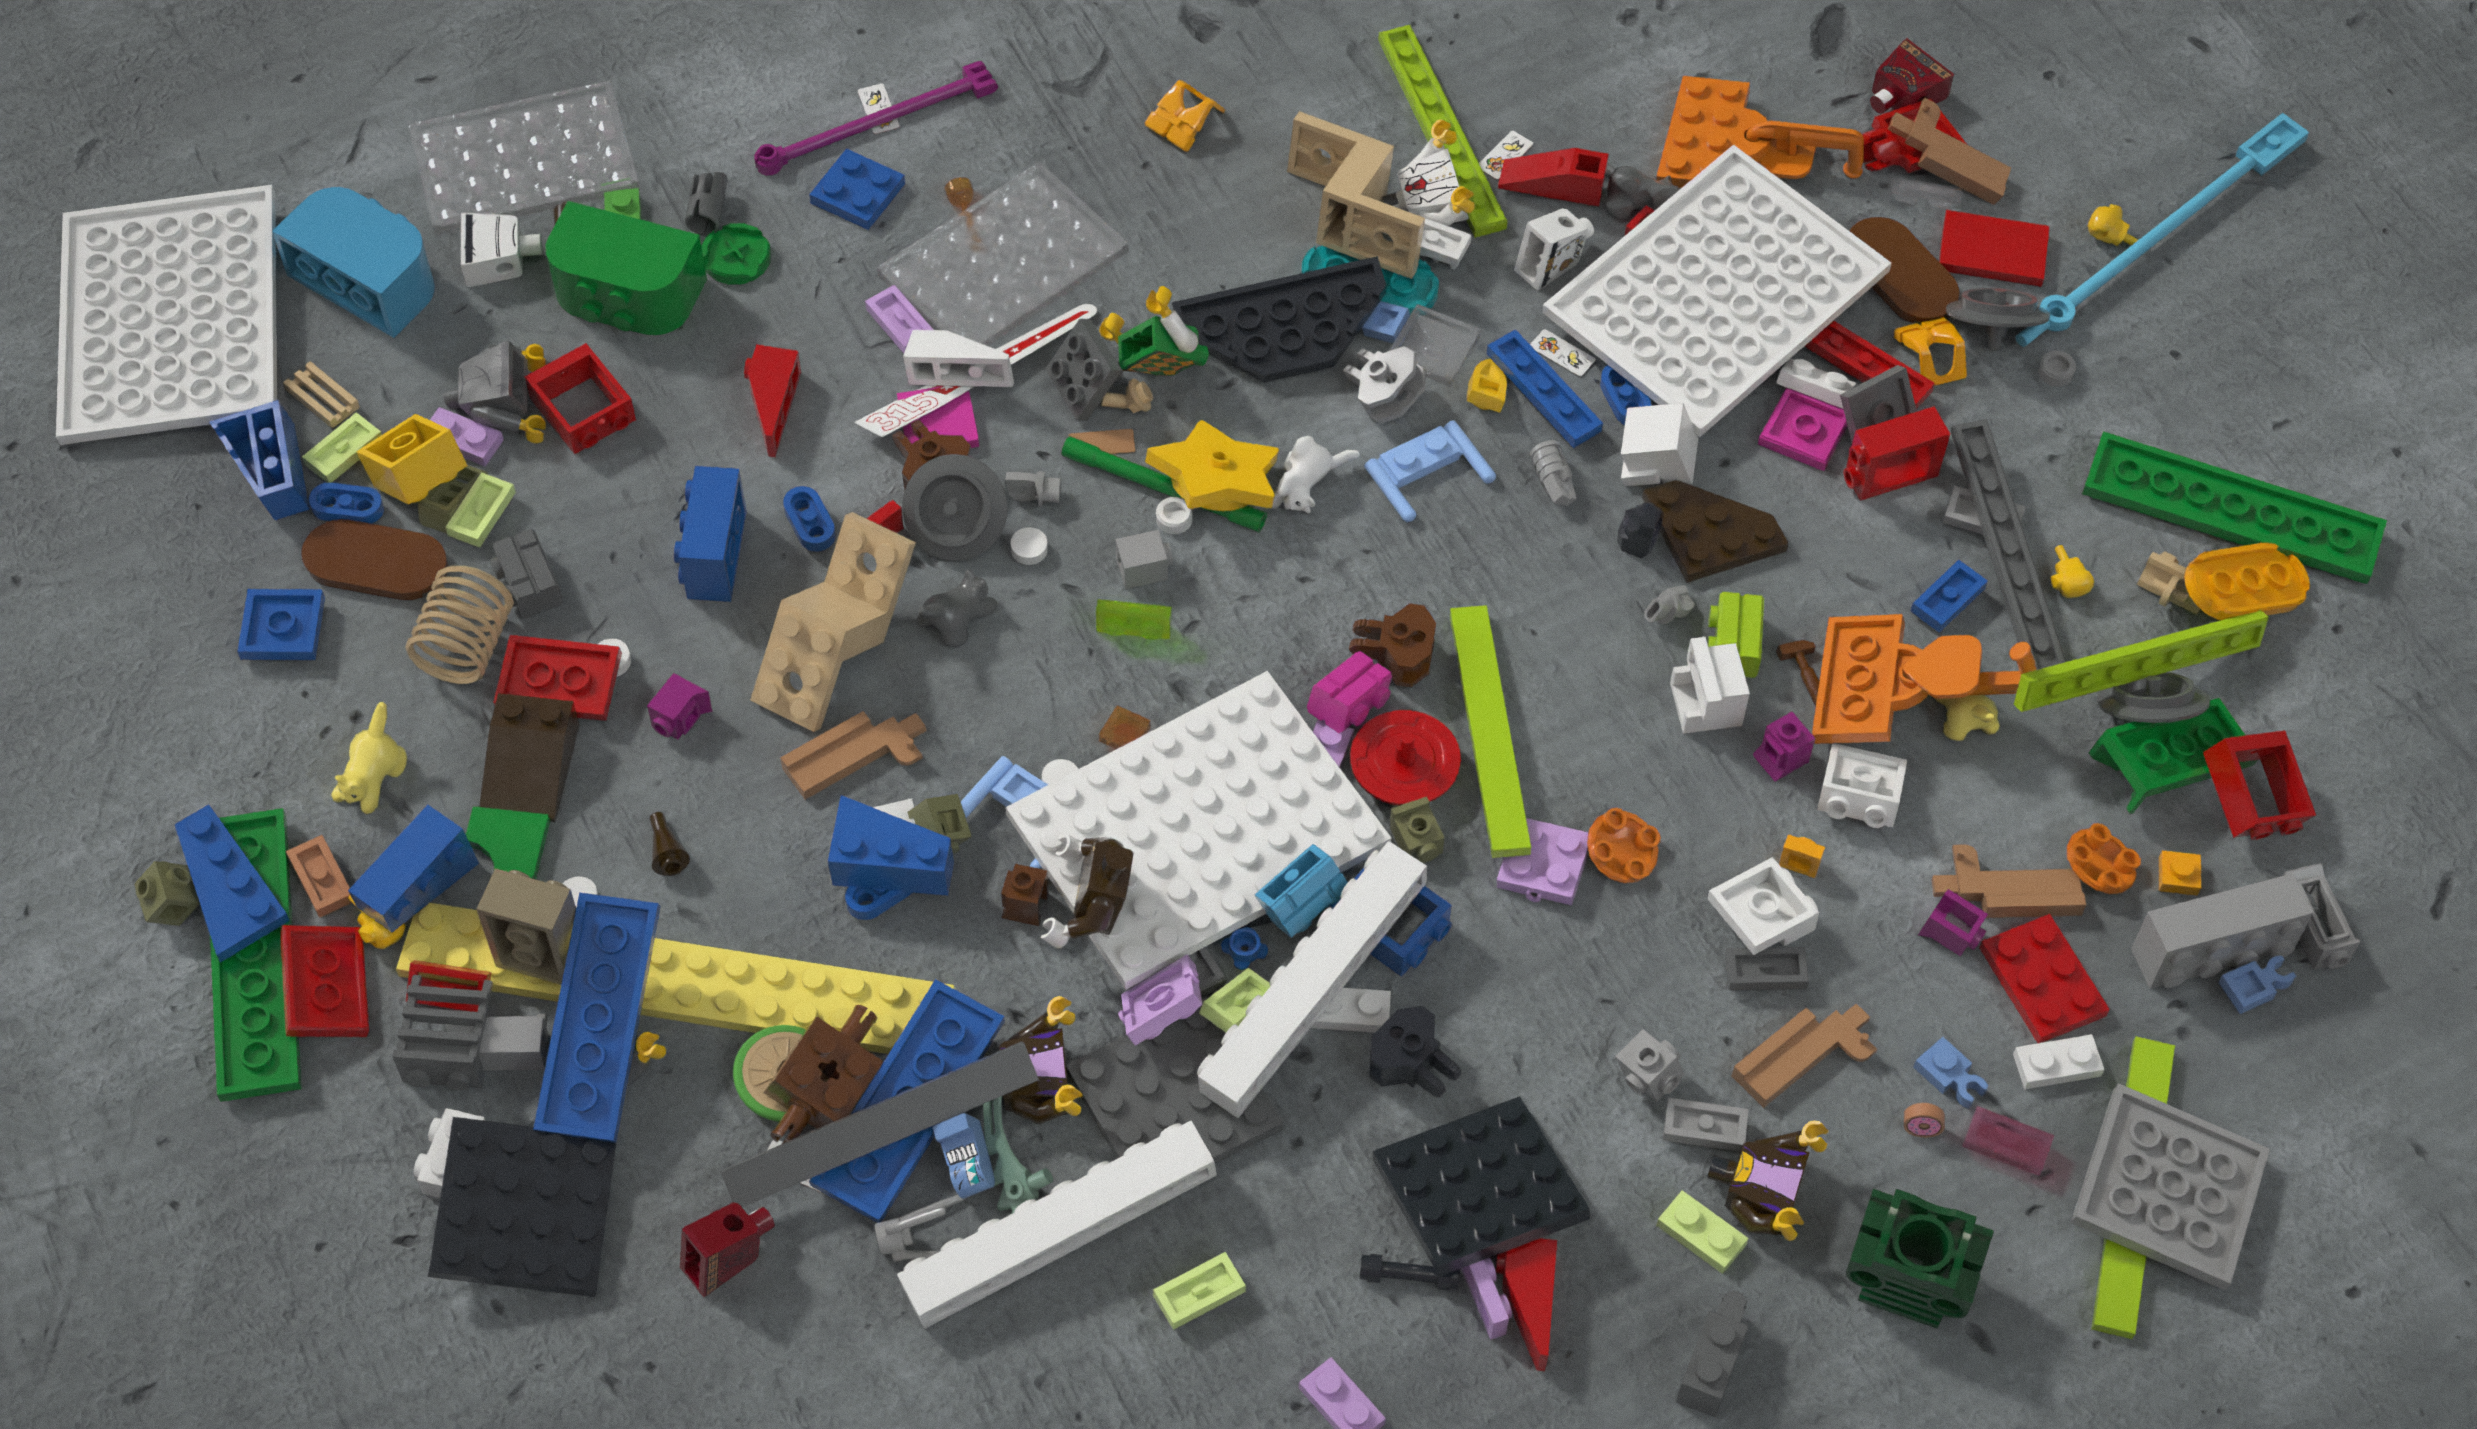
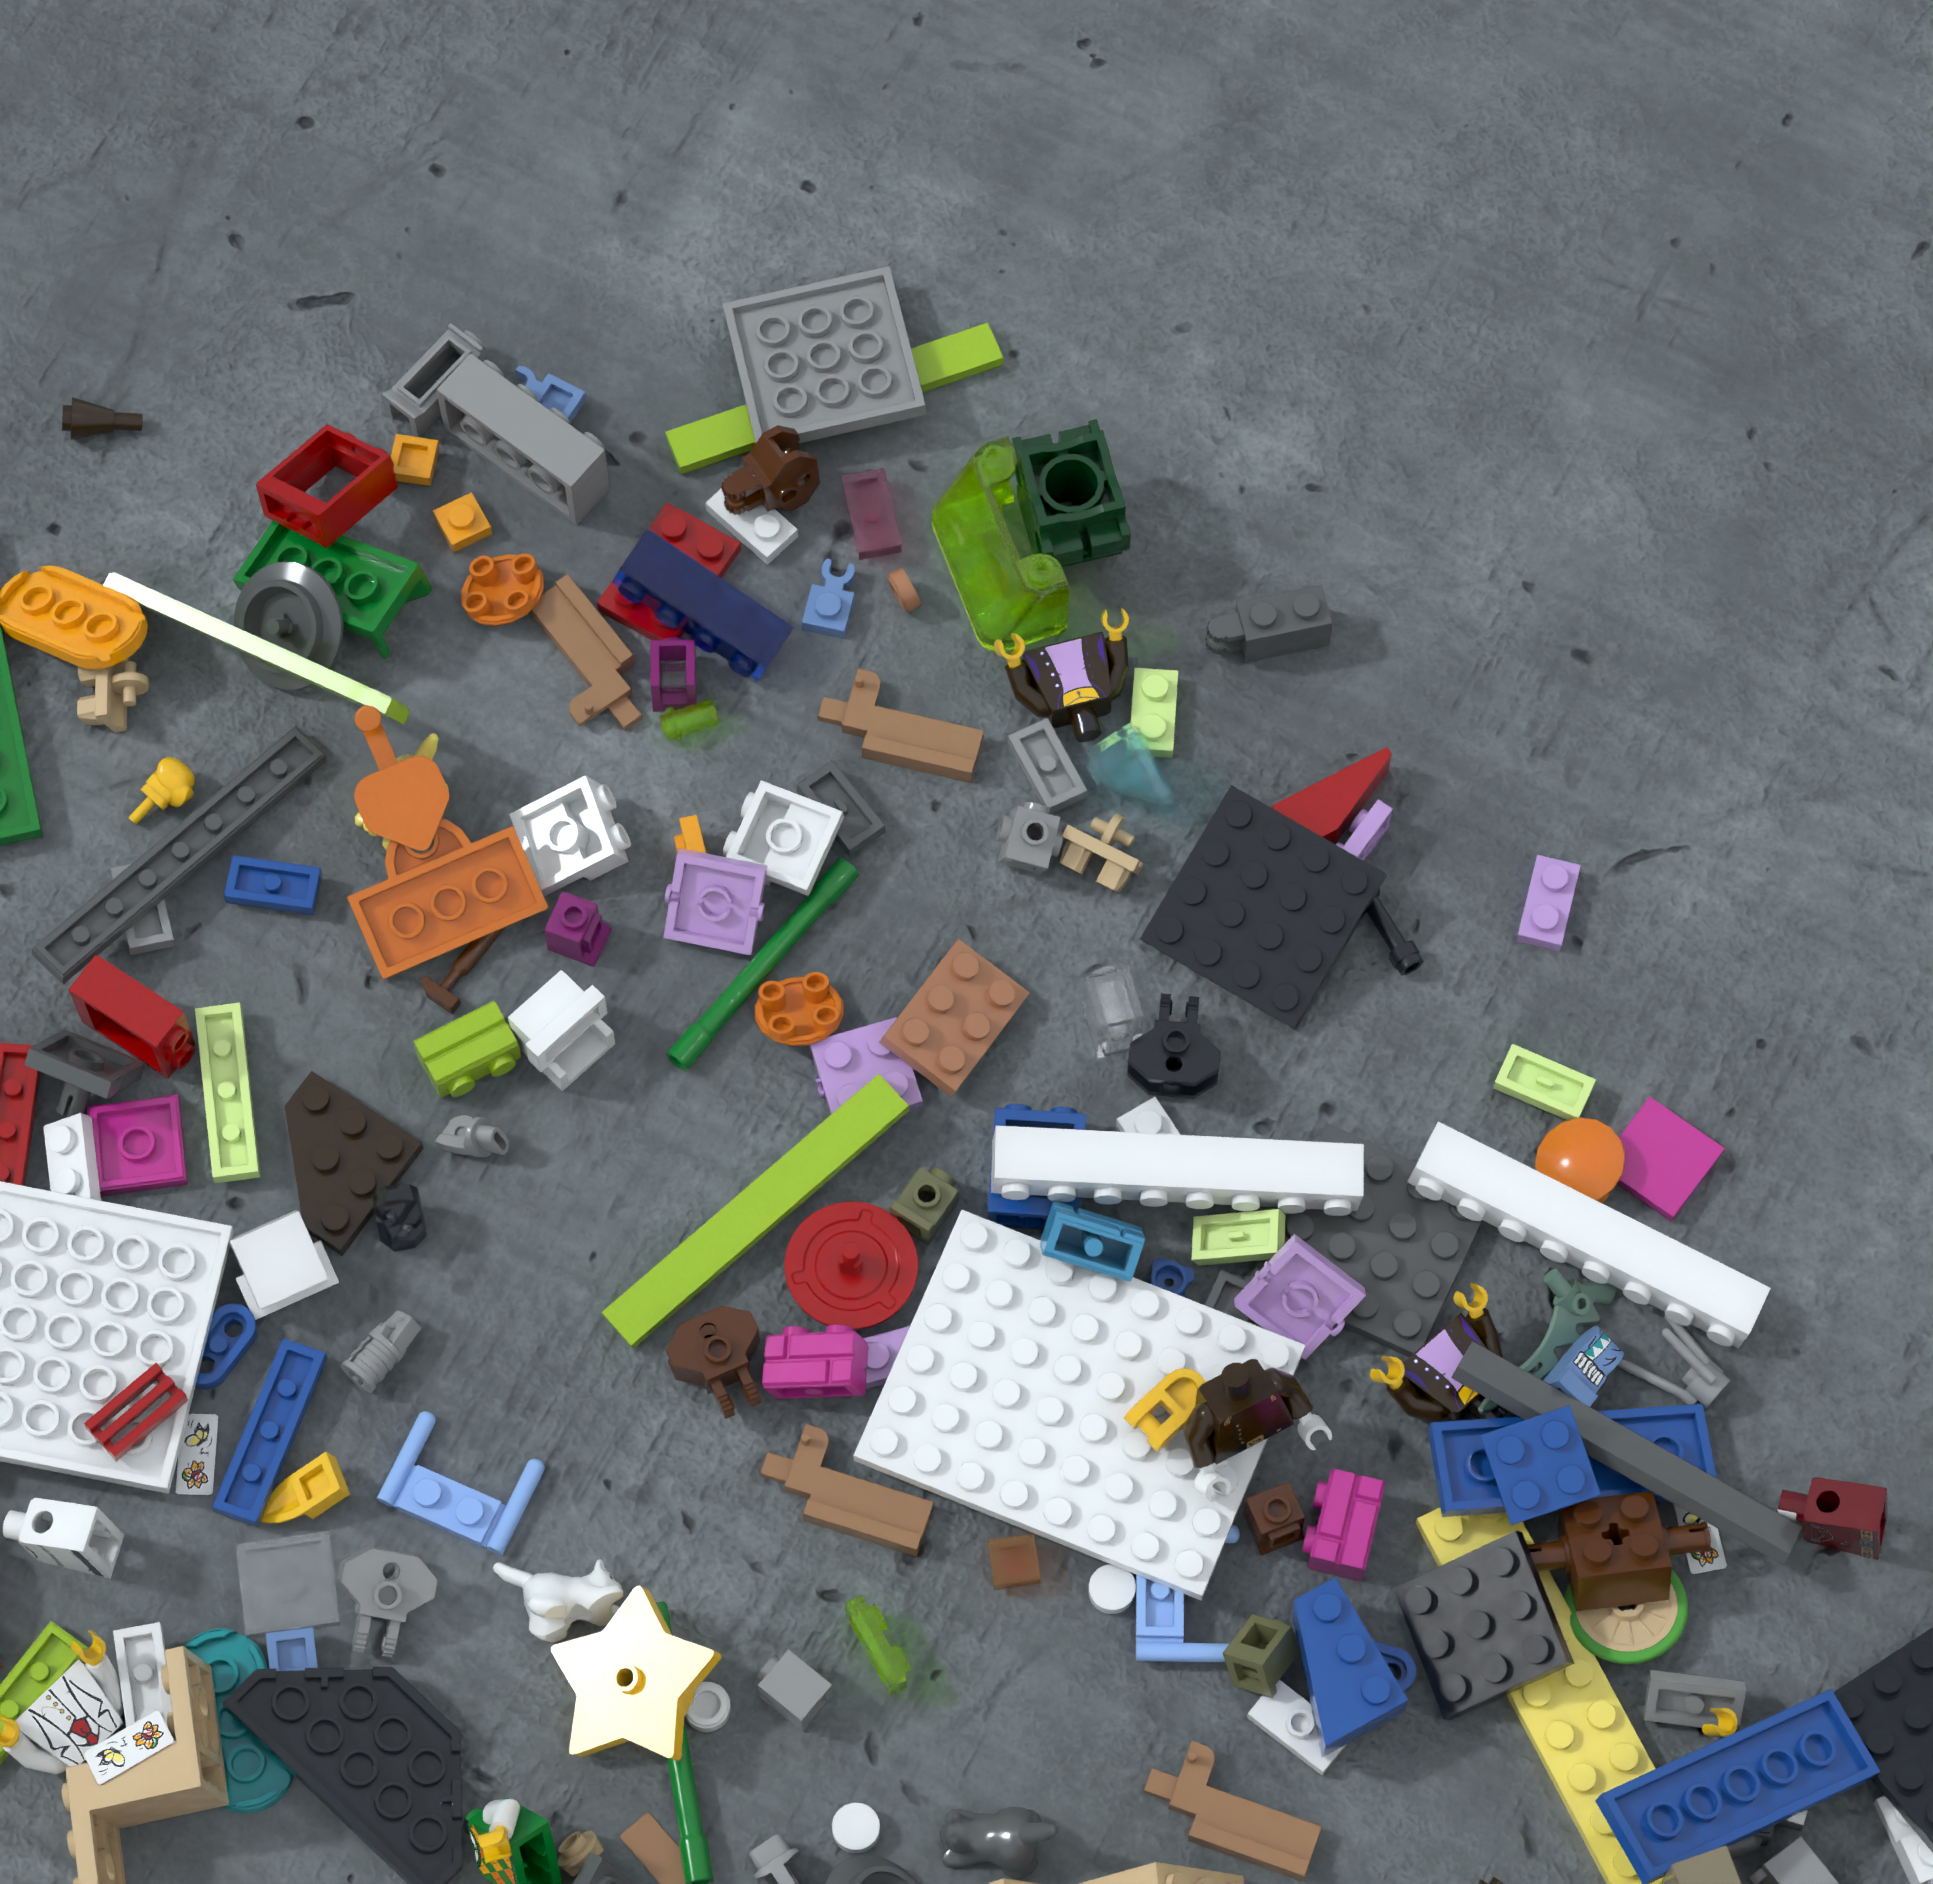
camera: 125 degrees left, 10 degrees up
(693, 1059) = (1688, 1698): none -> light grey plate
(843, 962) = (1483, 1625): none -> plate
(913, 1051) = (1540, 1465): none -> blue plate
(985, 935) = (1345, 1524): none -> dark pink brick
(1081, 1334) = (1665, 1158): none -> dark pink tile
(1119, 1268) = (1583, 1157): none -> orange dish
(1148, 865) = (1177, 1396): none -> yellow plate
(1245, 661) = (847, 1501): none -> medium nougat piece
(1378, 174) = (128, 1747): none -> white sticker
(1470, 1024) = (1111, 1010): none -> clear brick
(1544, 933) = (954, 1017): none -> nougat plate
(1601, 286) = (166, 1384): none -> red tile
(1608, 1115) = (1081, 847): none -> tan hips
(1651, 1170) = (1129, 767): none -> clear light blue slope
(1704, 918) = (701, 1034): none -> green piece
(1743, 835) = (715, 901): none -> lavender plate
(1807, 490) = (227, 1093): none -> yellowish green plate
(1856, 1173) = (993, 582): none -> clear neon green windscreen
(1911, 907) = (688, 719): none -> clear neon green pin
(1995, 963) = (701, 605): none -> clear blue brick
(2081, 1076) = (772, 475): none -> reddish brown hinge
(2254, 864) = (414, 459): none -> light orange plate
(2419, 685) = (90, 419): none -> dark brown cone

